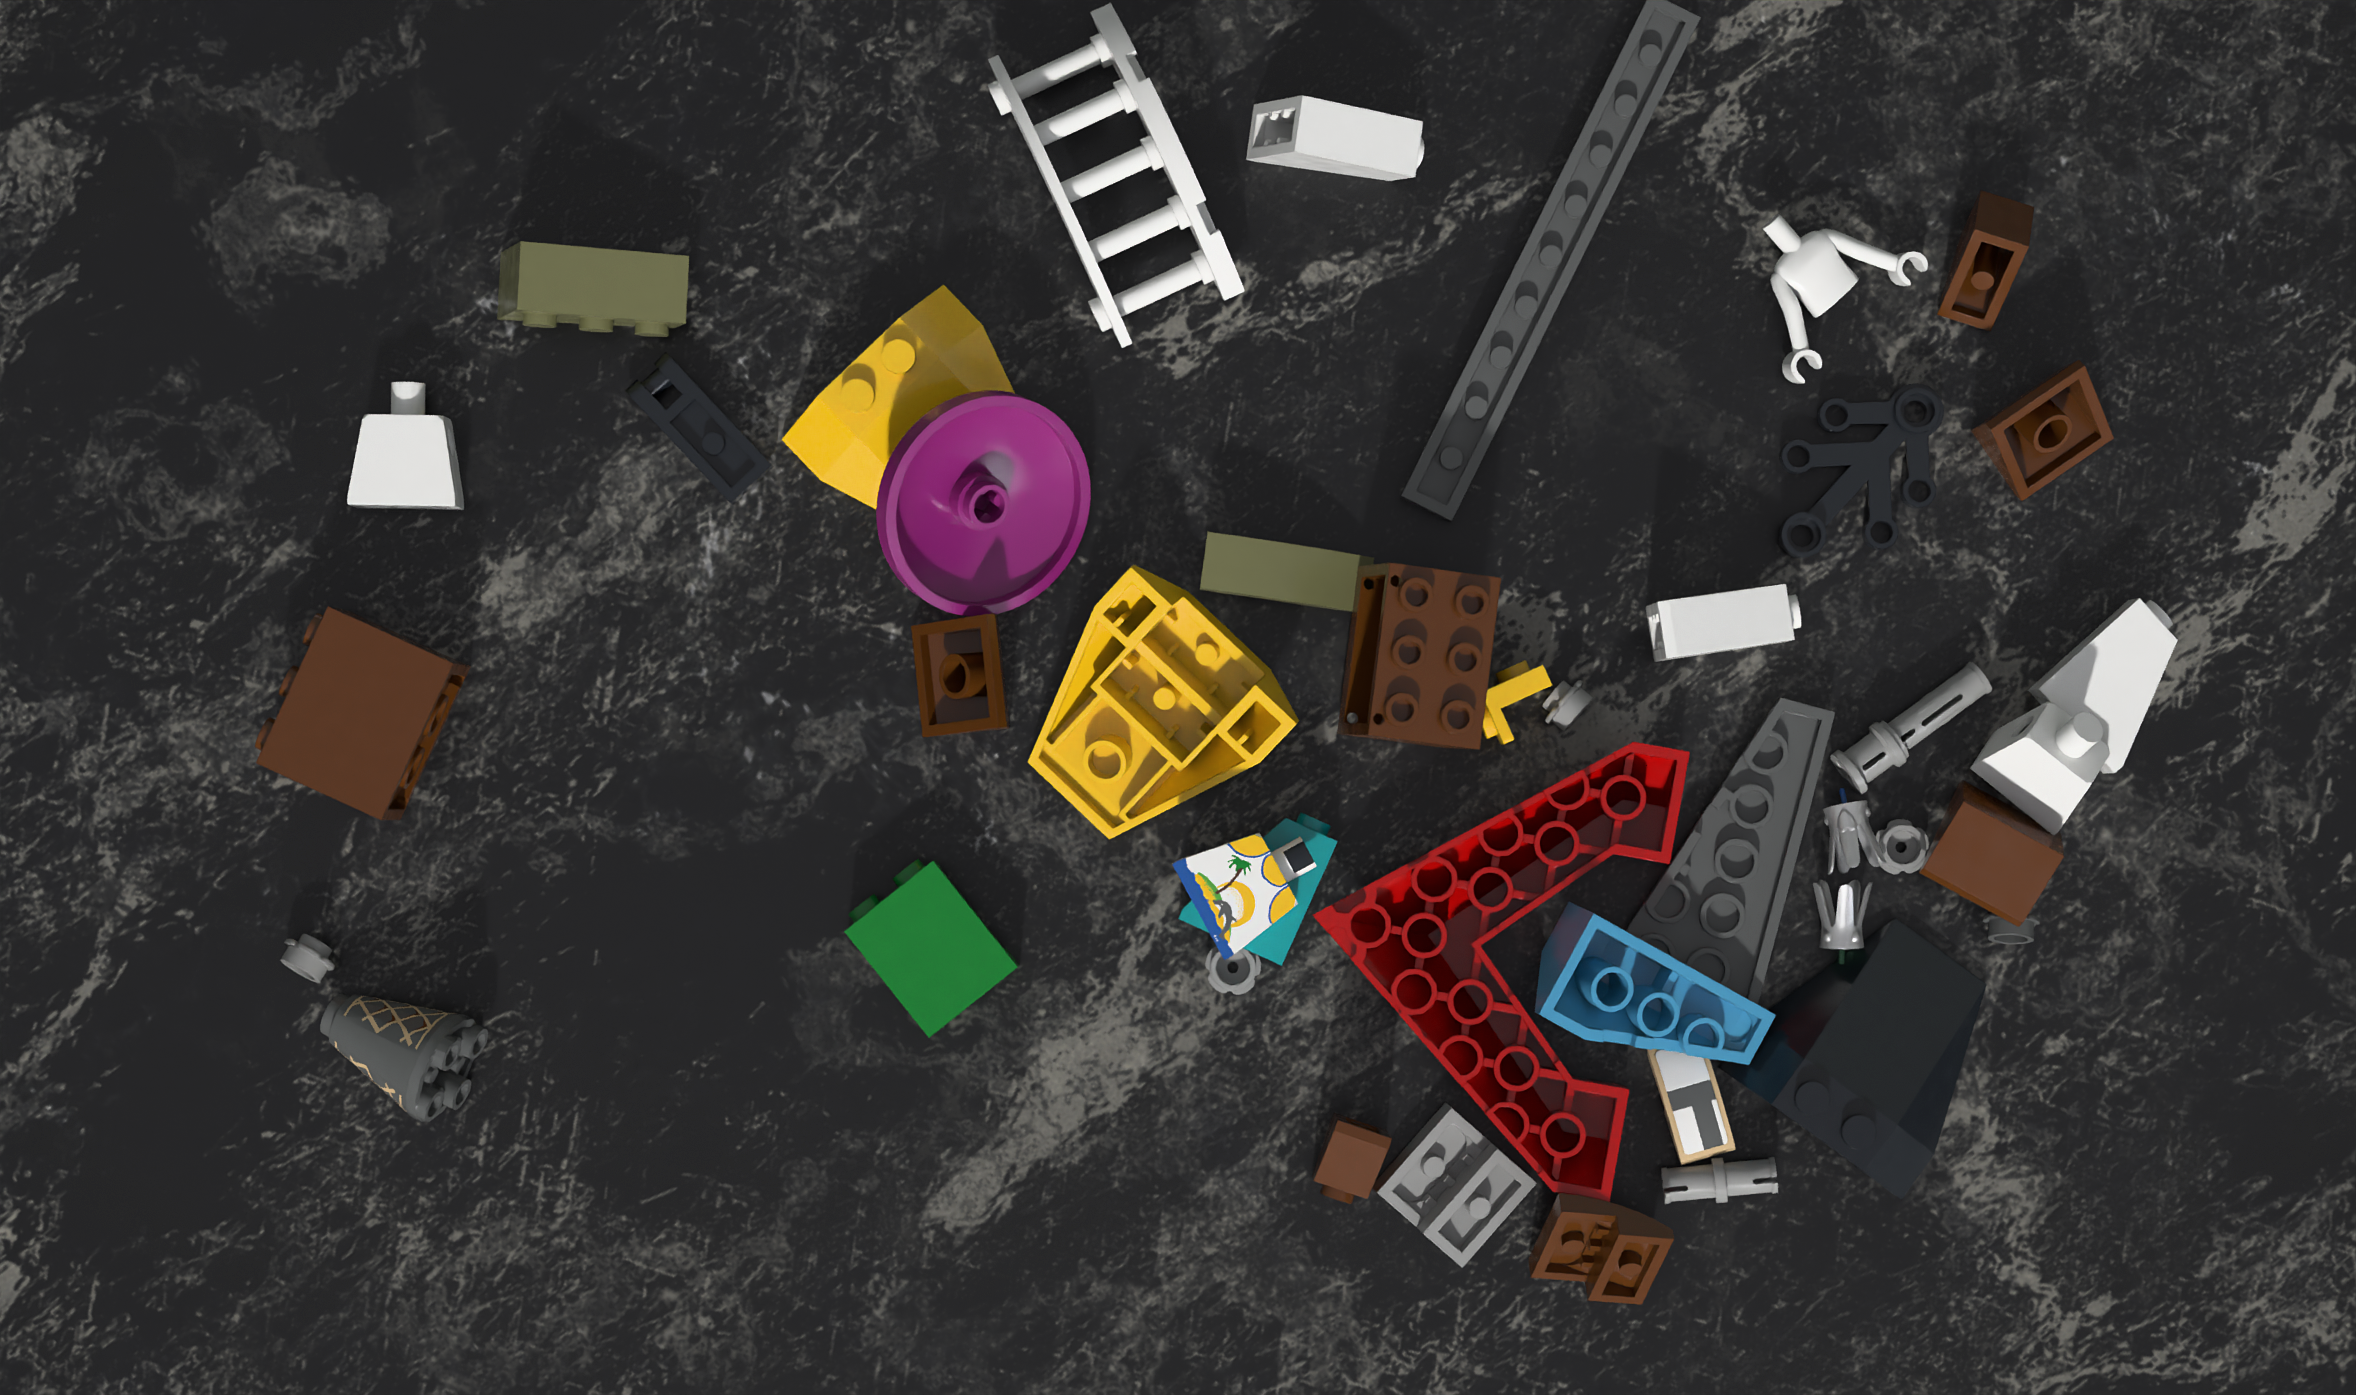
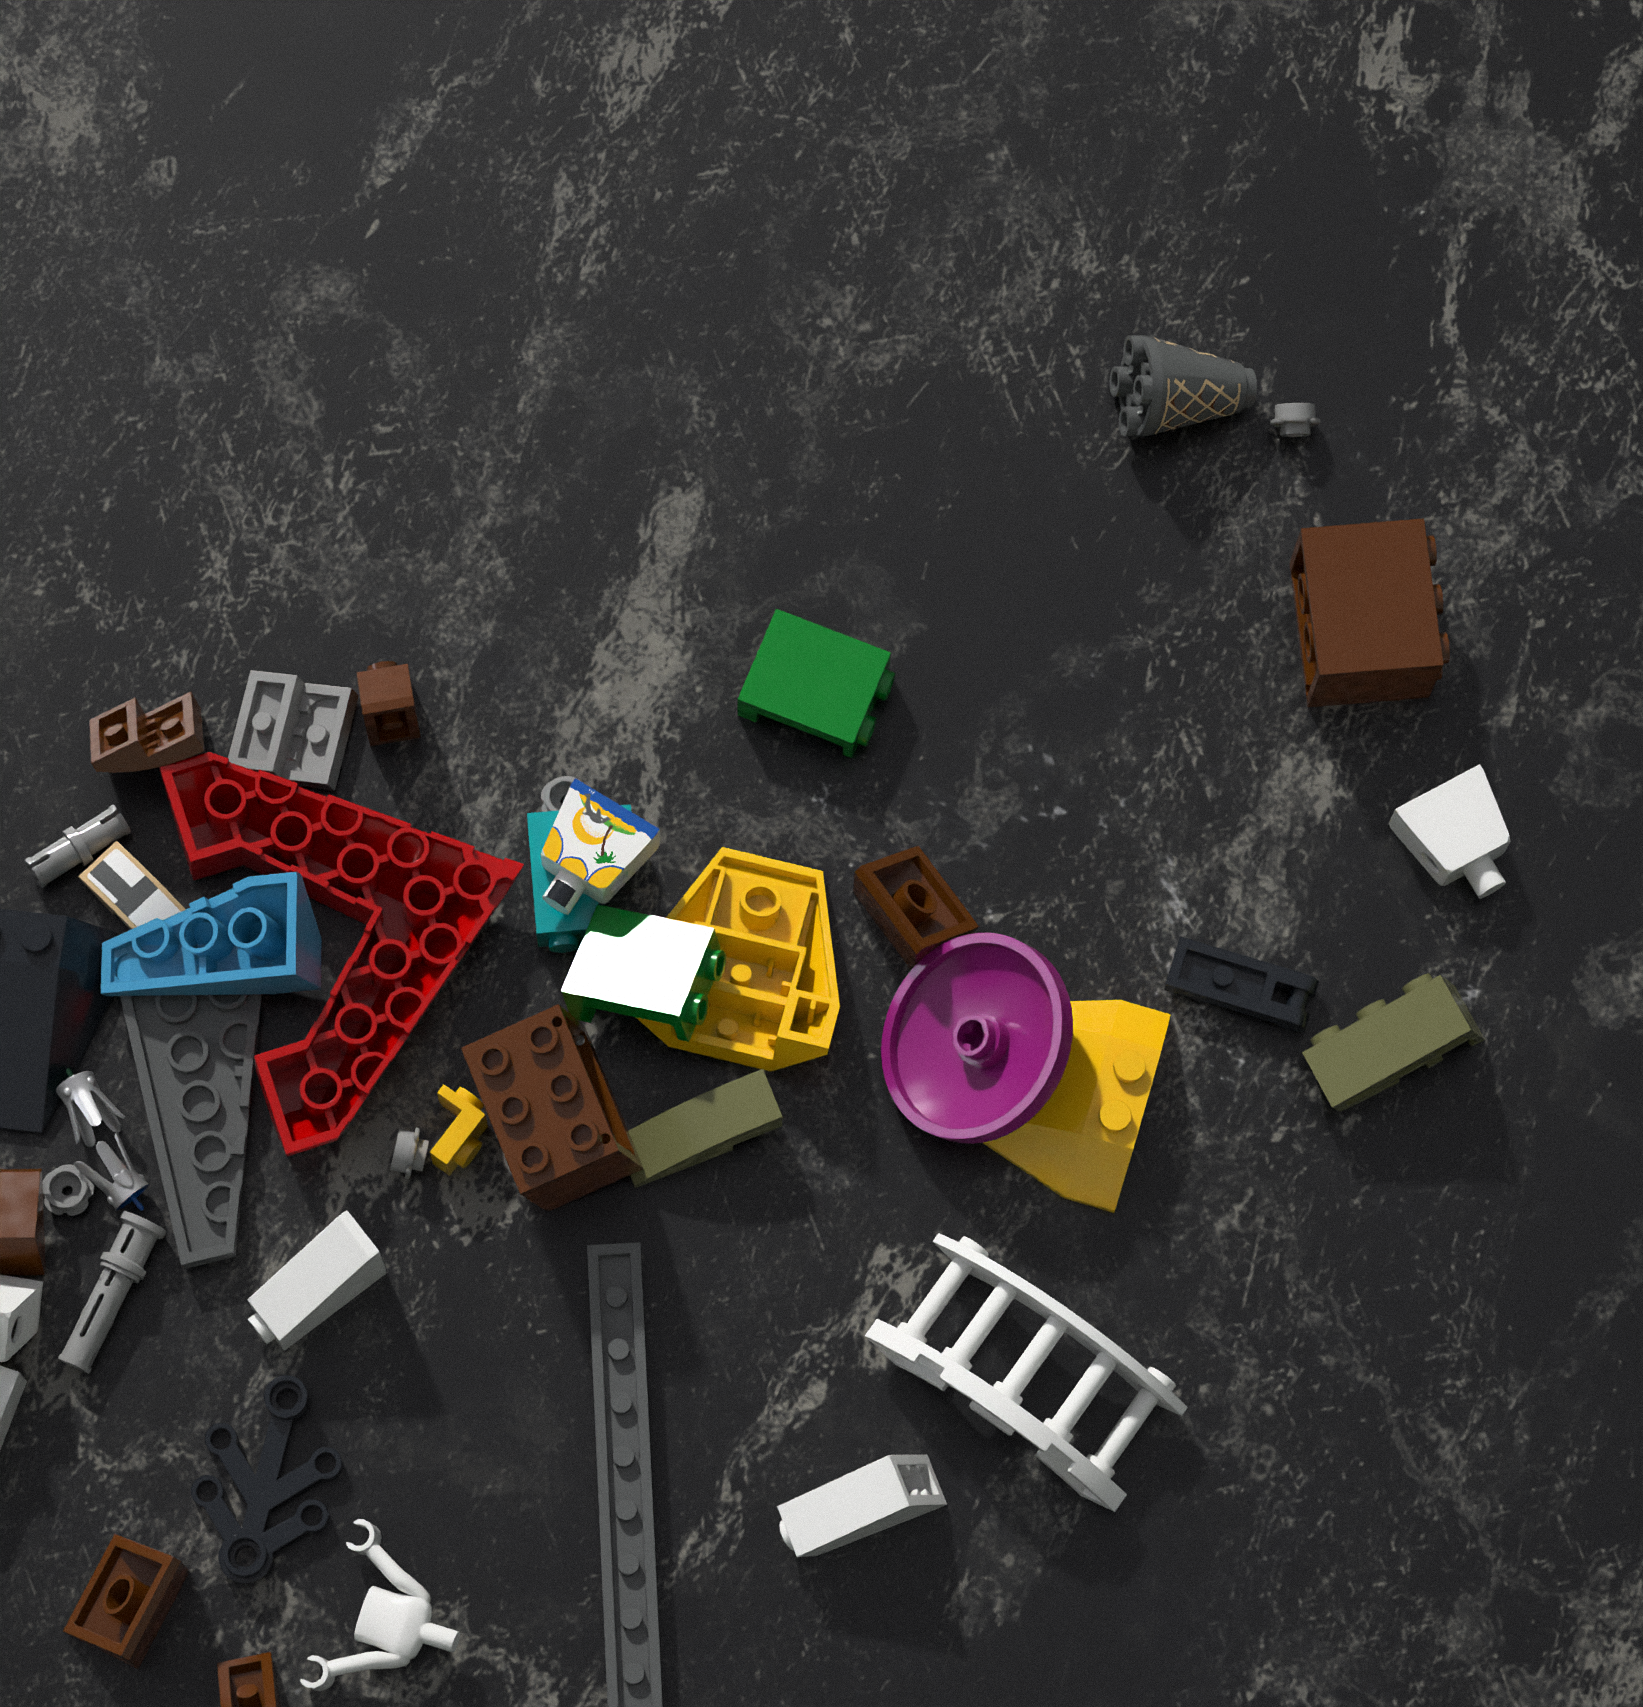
camera: 150 degrees right, 15 degrees down
(1257, 744) = (644, 969): none -> panel

